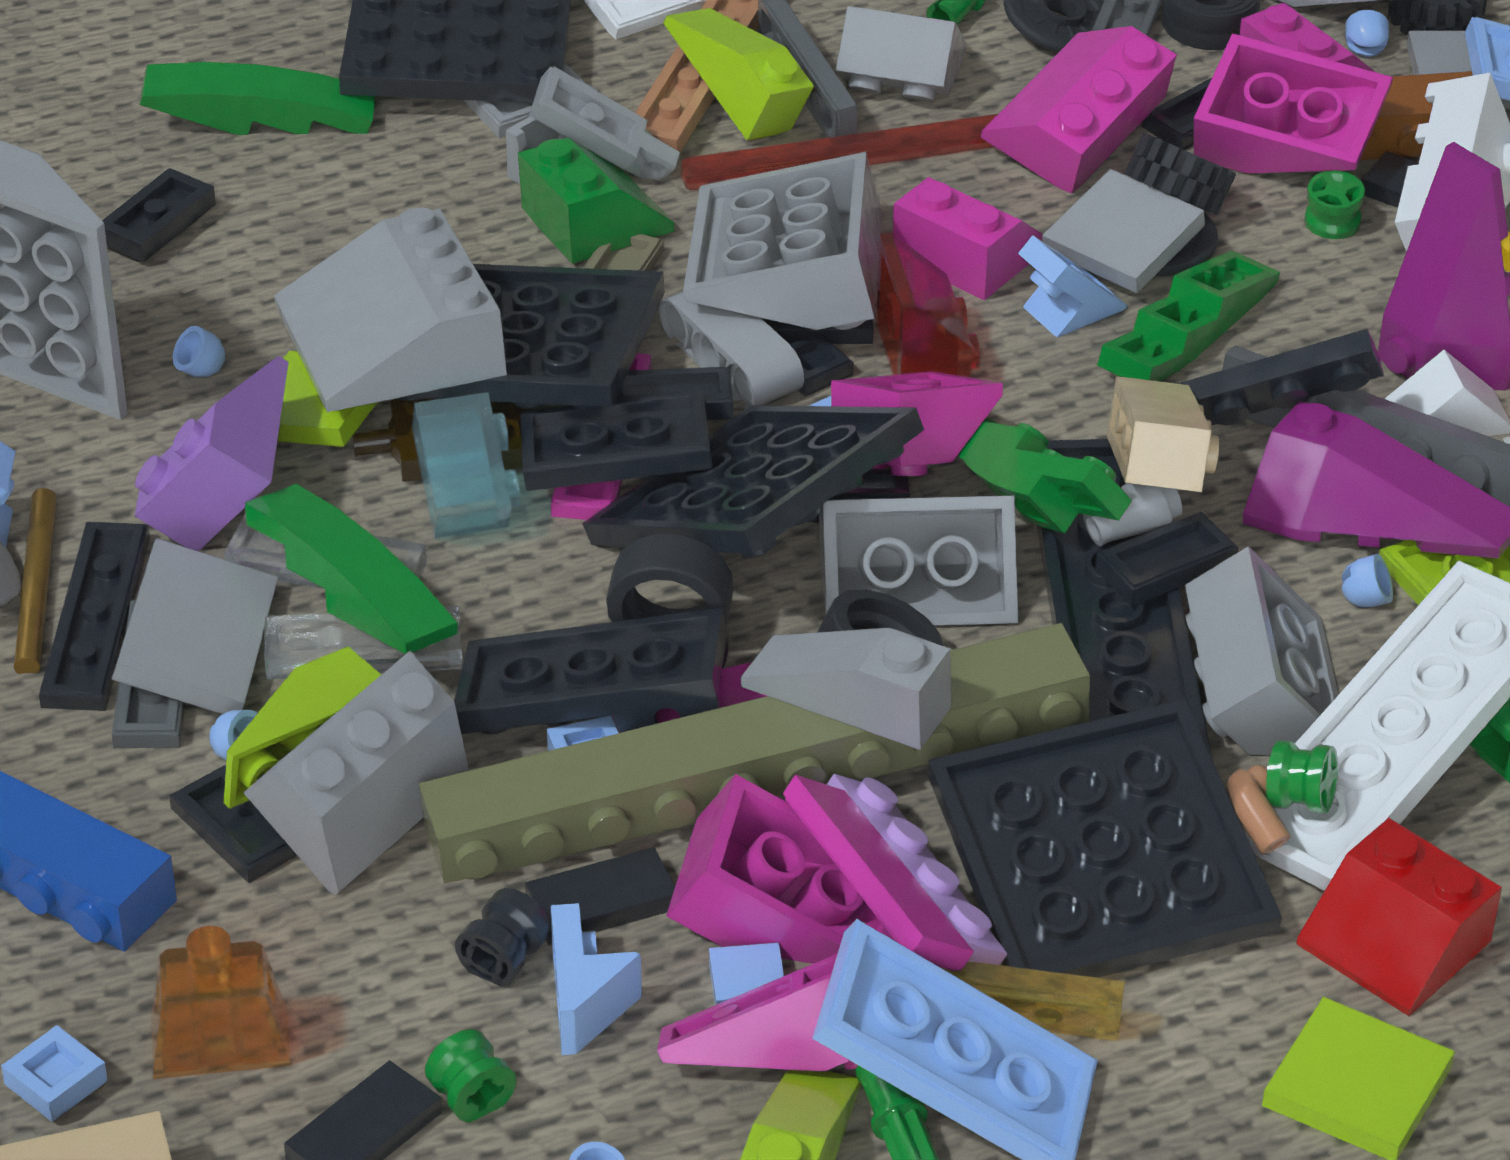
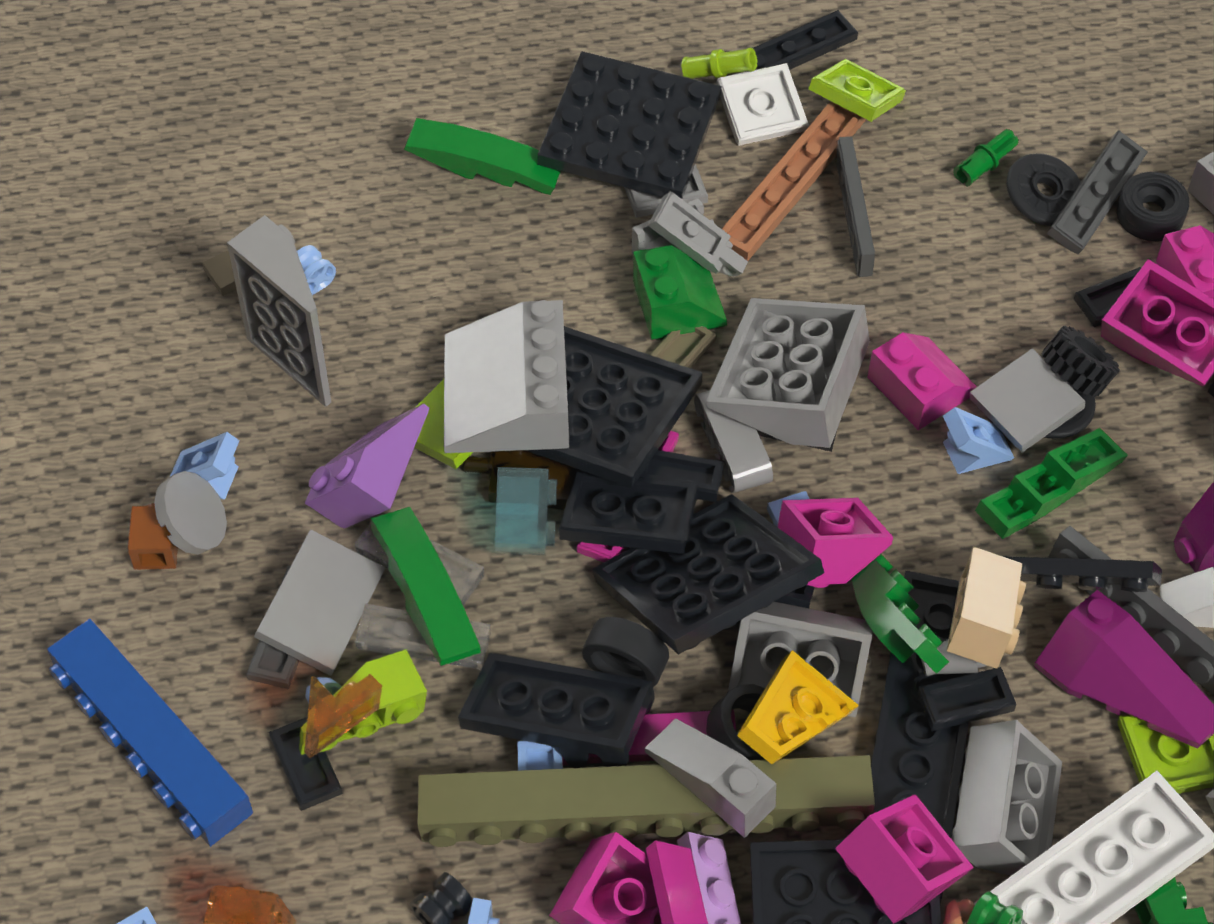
camera: 15 degrees right, 15 degrees up
(35, 582) = (235, 532): pearl gold bar -> none
(94, 616) = (263, 570): black tile -> none
(157, 214) = (392, 241): black plate -> none
(198, 352) = (386, 366): light blue hinge -> none
(275, 718) = (334, 716): none -> clear orange slope
(358, 775) = (384, 755): light grey slope -> none
(608, 891) = (517, 880): black tile -> none
(744, 70) = (807, 202): lime slope -> none
(821, 363) = (787, 463): black tile -> none
(880, 146) = (899, 282): clear red axle -> none
(899, 53) = (921, 208): light grey slope -> none
(920, 316) = (865, 453): clear red slope -> none
(939, 600) = (793, 709): none -> yellow wing
(1083, 104) = (1031, 283): dark pink slope -> none
(1149, 721) = (903, 857): none -> dark pink slope
(1334, 204) = (1189, 397): green wheel -> none
(1367, 582) = (1102, 743): light blue hinge -> none

